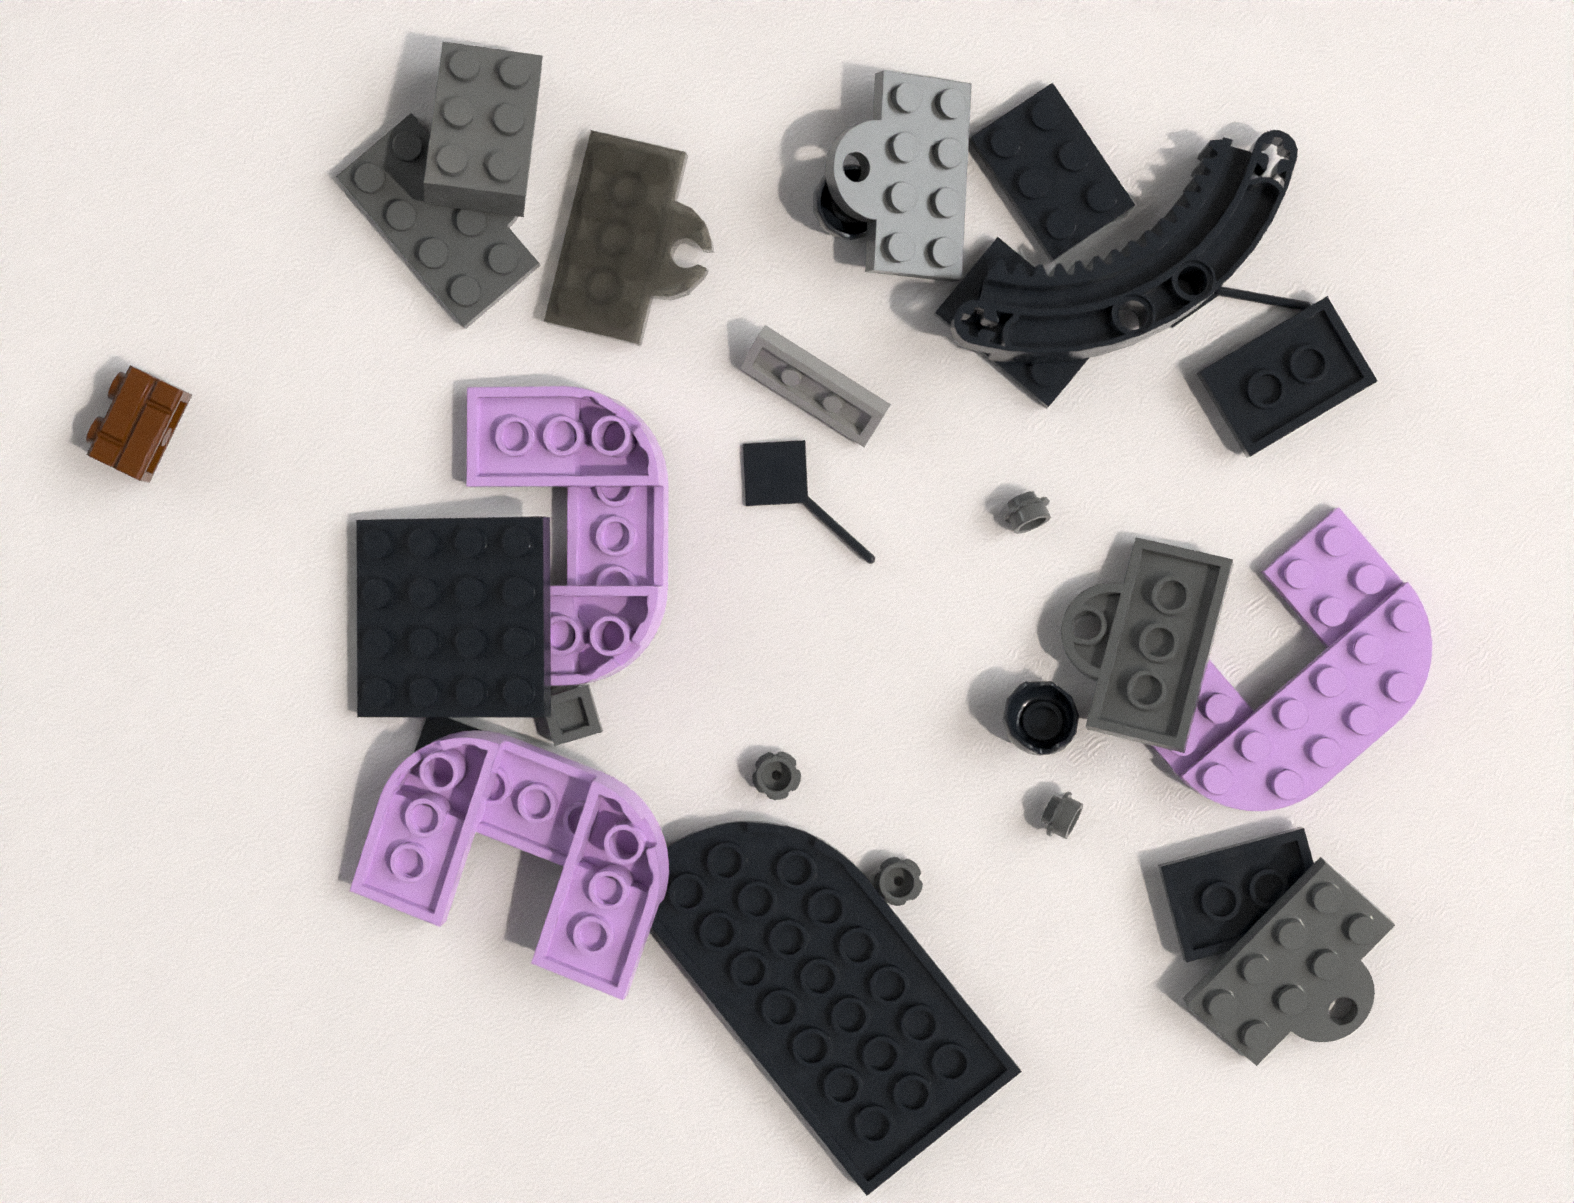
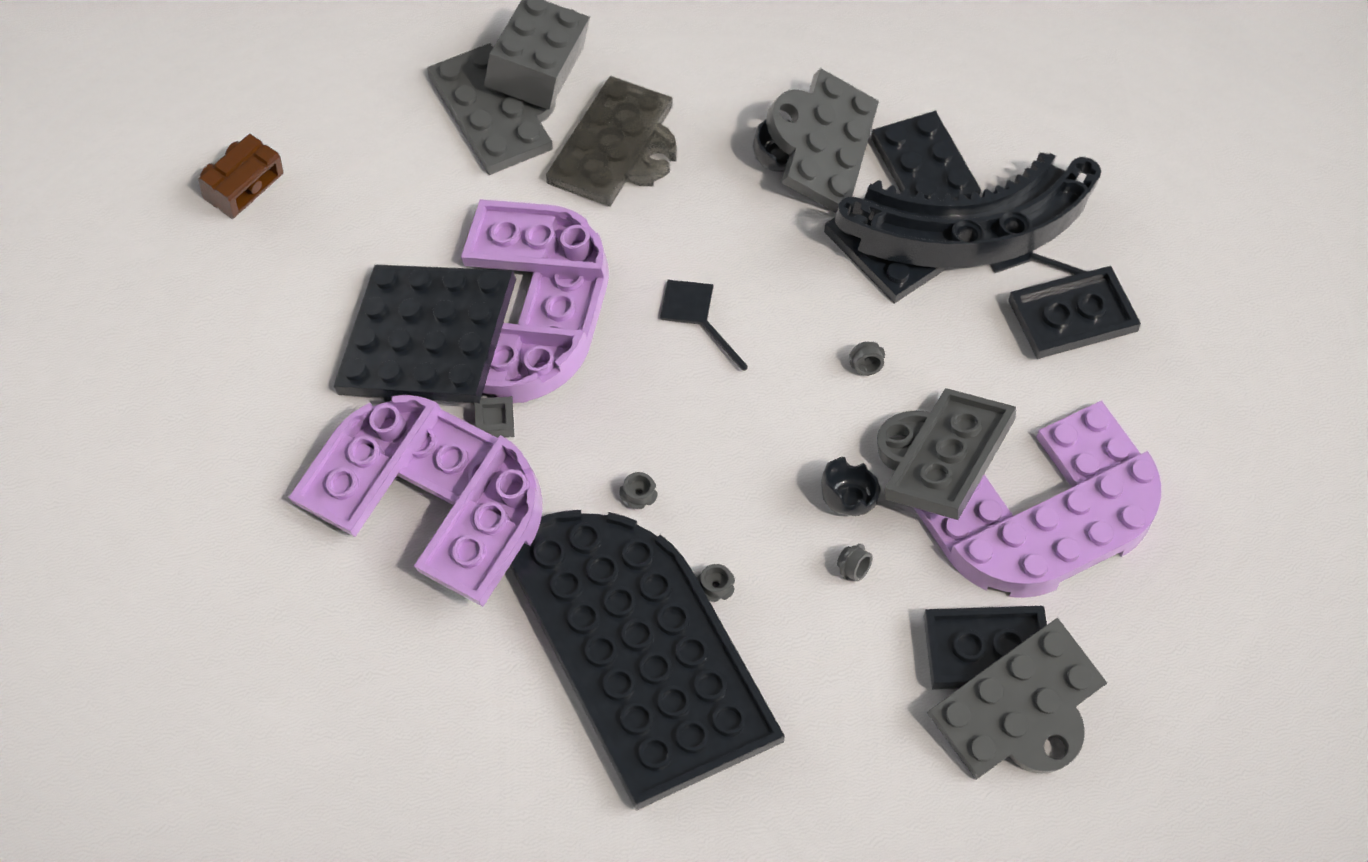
camera: 10 degrees right, 30 degrees down
(814, 386) = (729, 248): light grey plate -> none

